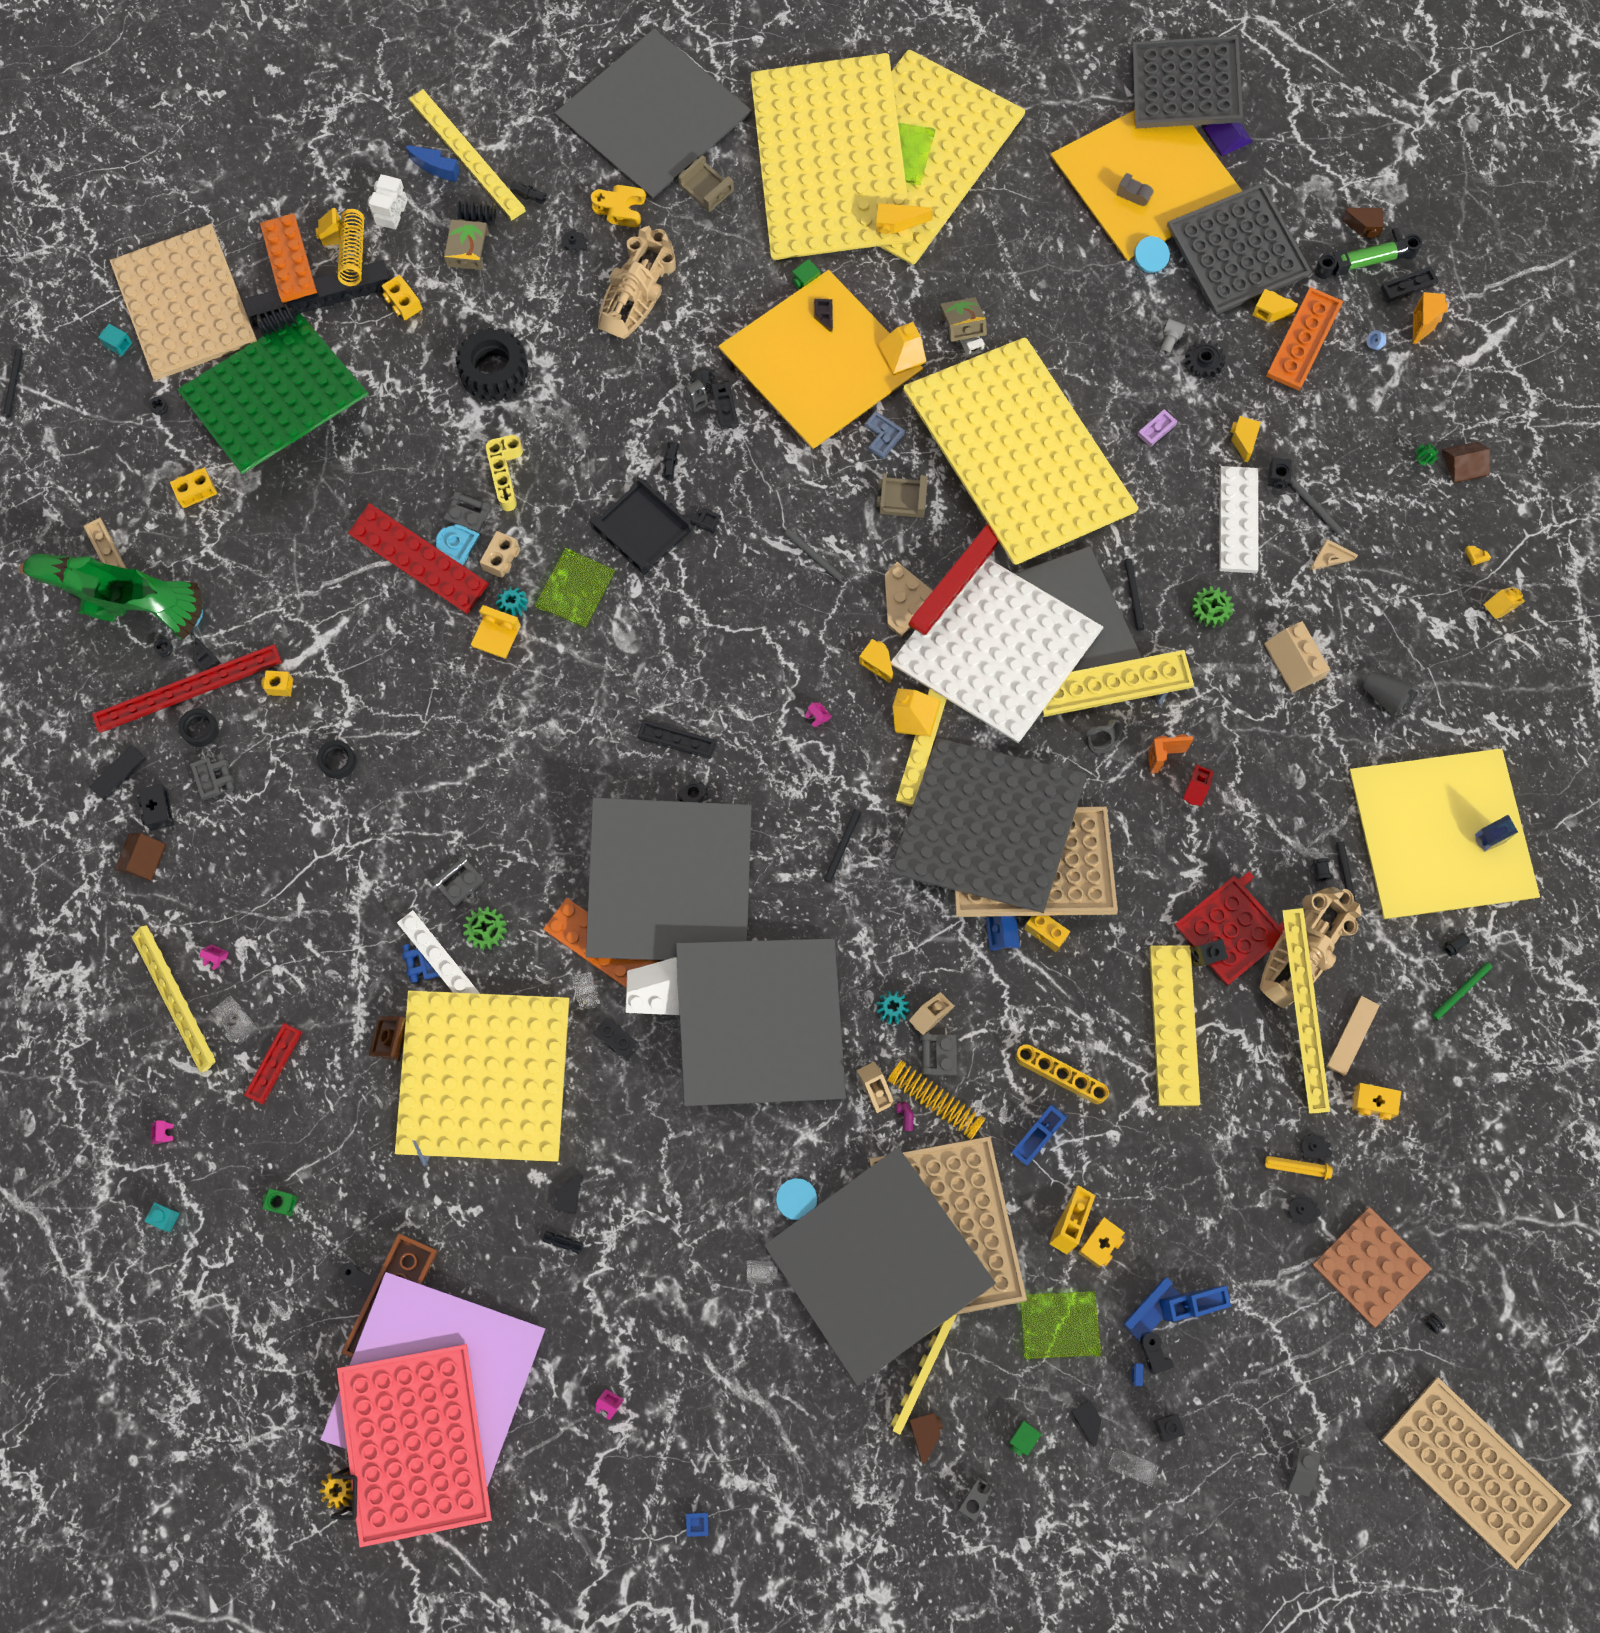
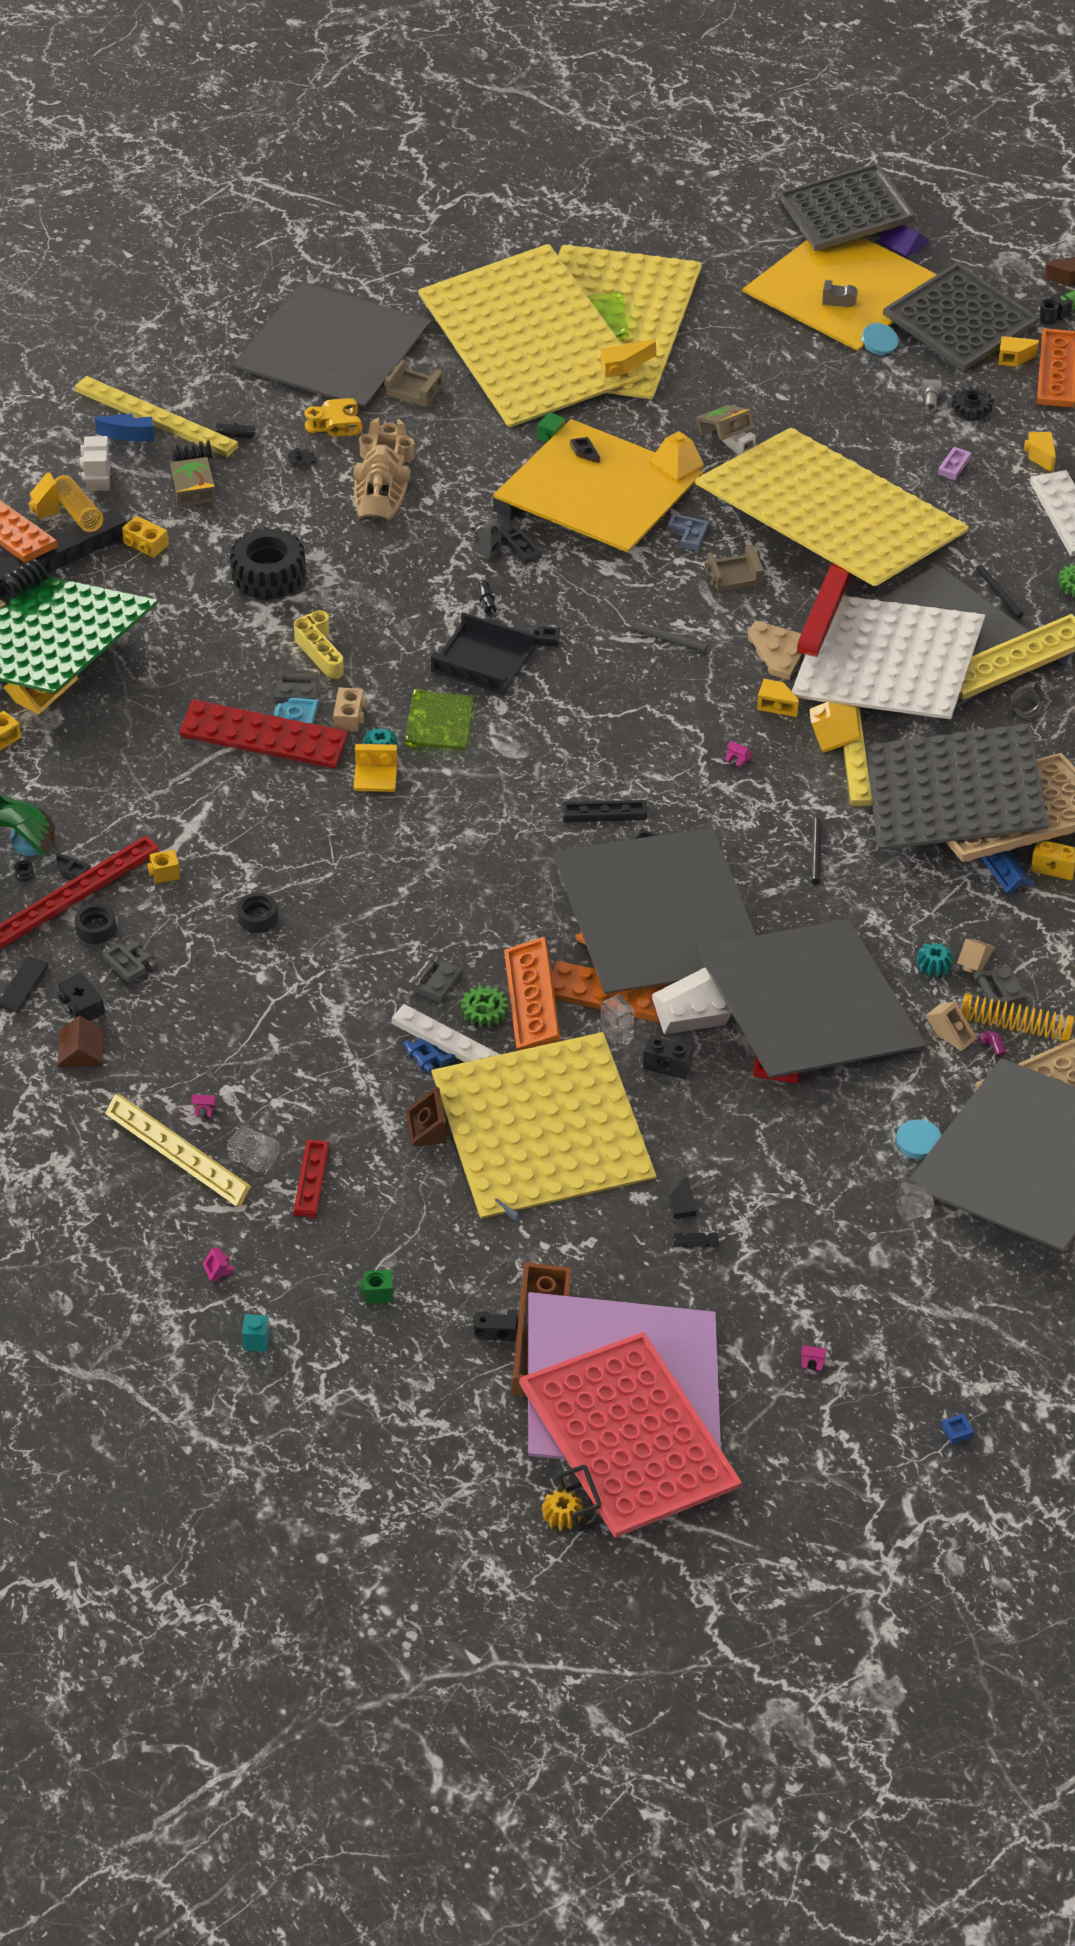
camera: 20 degrees left, 25 degrees down
(528, 931) = (532, 994): none -> orange plate

